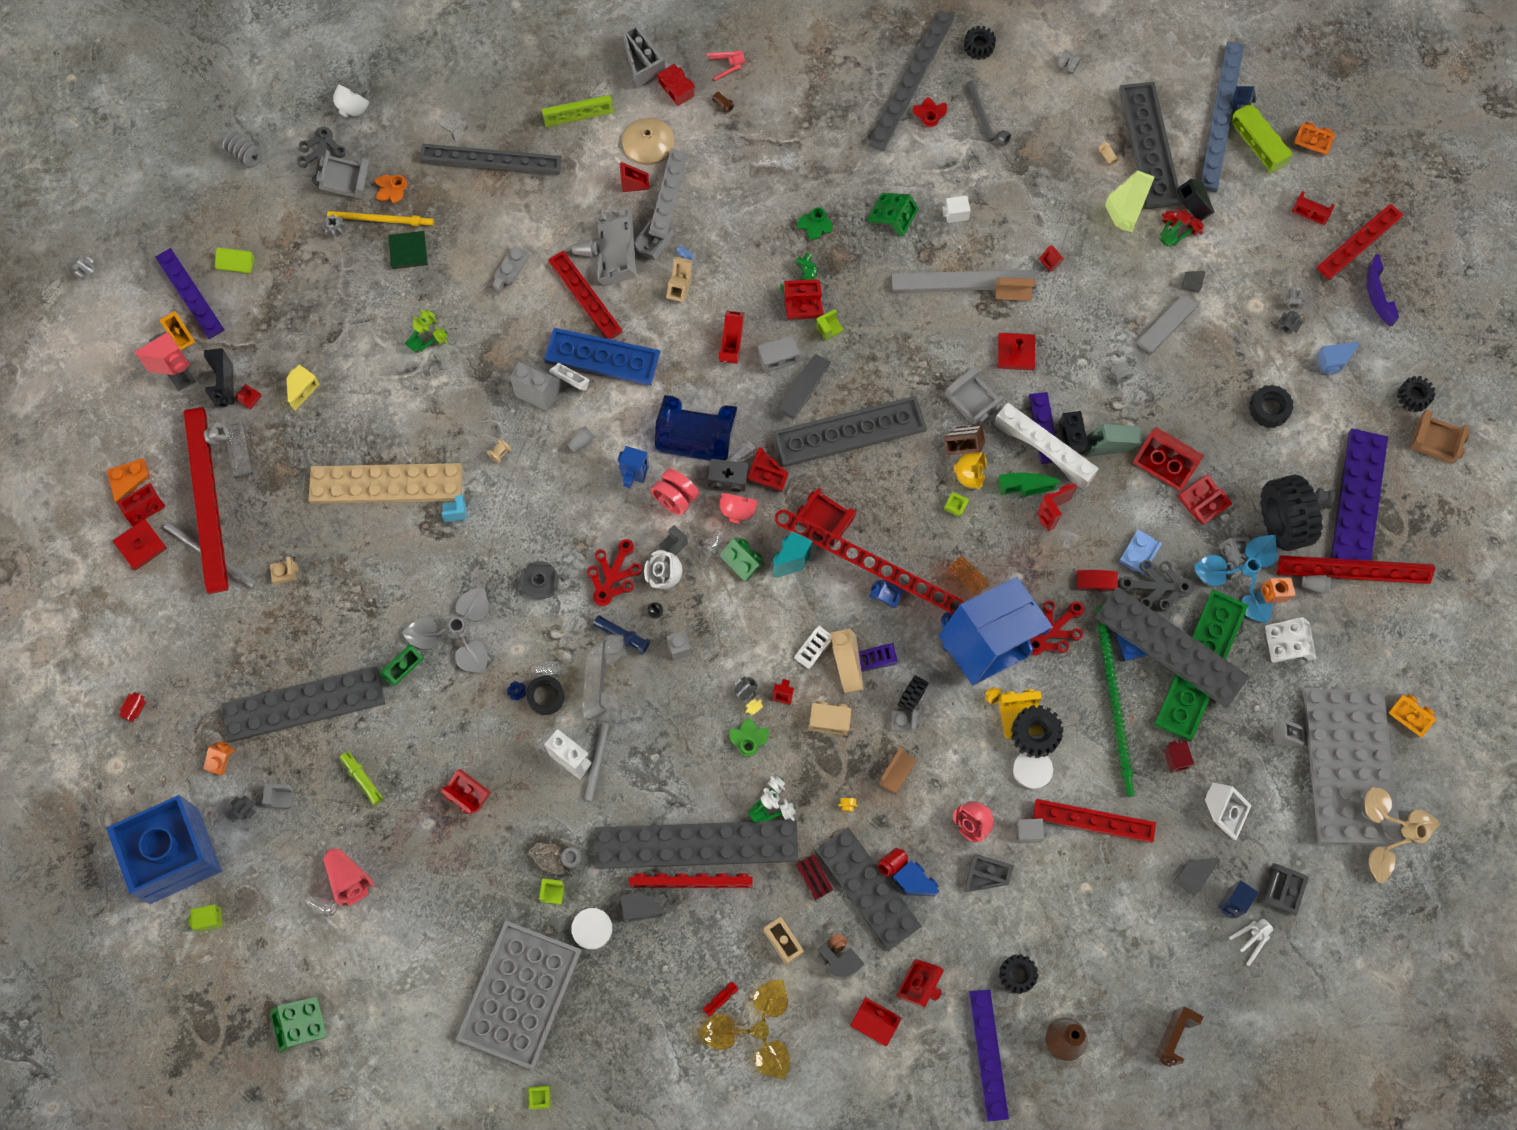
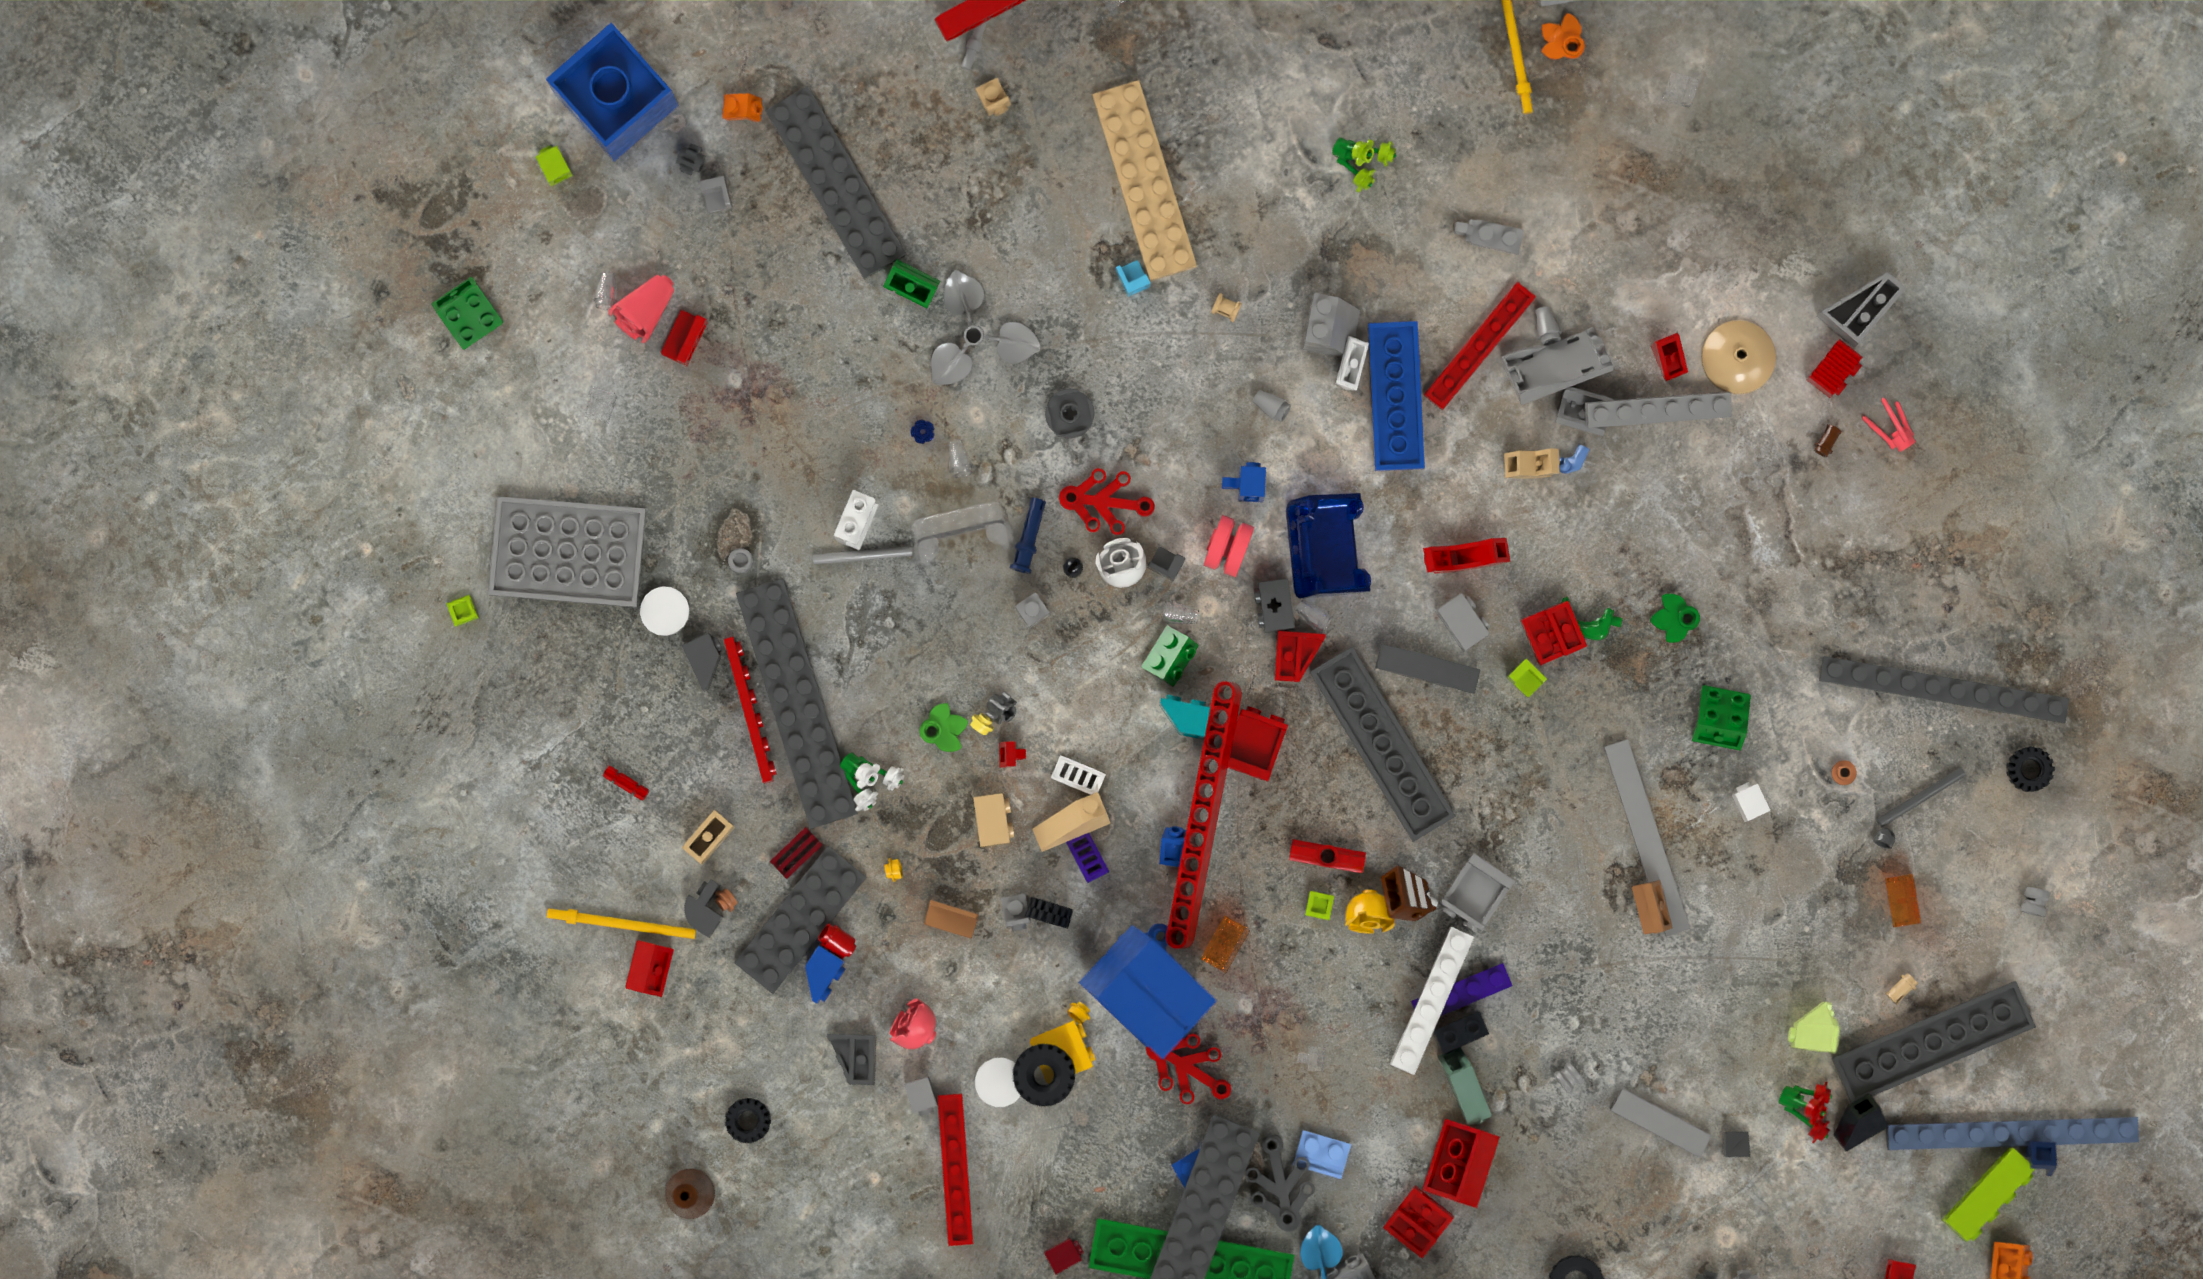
camera: 75 degrees right, 15 degrees up
(300, 386) = (1243, 26): light yellow slope -> none
(356, 771) = (764, 284): lime pin -> none
(380, 853) = (684, 337): none -> red panel
(408, 250) = (1478, 93): dark green tile -> none
(466, 792) = (780, 412): red bracket -> none
(490, 159) = (1644, 156): dark grey plate -> none
(544, 680) = (907, 466): black tyre -> none
(552, 891) = (693, 551): lime panel -> none
(577, 110) = (1756, 247): lime fence -> none
(737, 507) = (1234, 630): coral cylinder -> none
(772, 1059) = (574, 861): clear yellow plant -> none
(817, 1072) = (572, 916): none -> yellow bar
(921, 983) = (703, 1008): red tile -> none
(926, 479) = (1344, 858): none -> red piece
(929, 110) = (1900, 727): red plate -> none
(951, 154) = (1837, 776): none -> nougat plate
(988, 1055) = (647, 1107): dark purple plate -> none
(1016, 351) = (1562, 932): red tile -> none
(1026, 483) = (1372, 988): green slope -> none
(1048, 510) = (1335, 1024): red bracket -> none
(1049, 134) = (1903, 900): none -> clear orange hinge
(1051, 258) = (1712, 947): red tile -> none
(1097, 580) = (1267, 1108): red slope -> none
(1126, 772) = (1026, 1197): green hose -> none

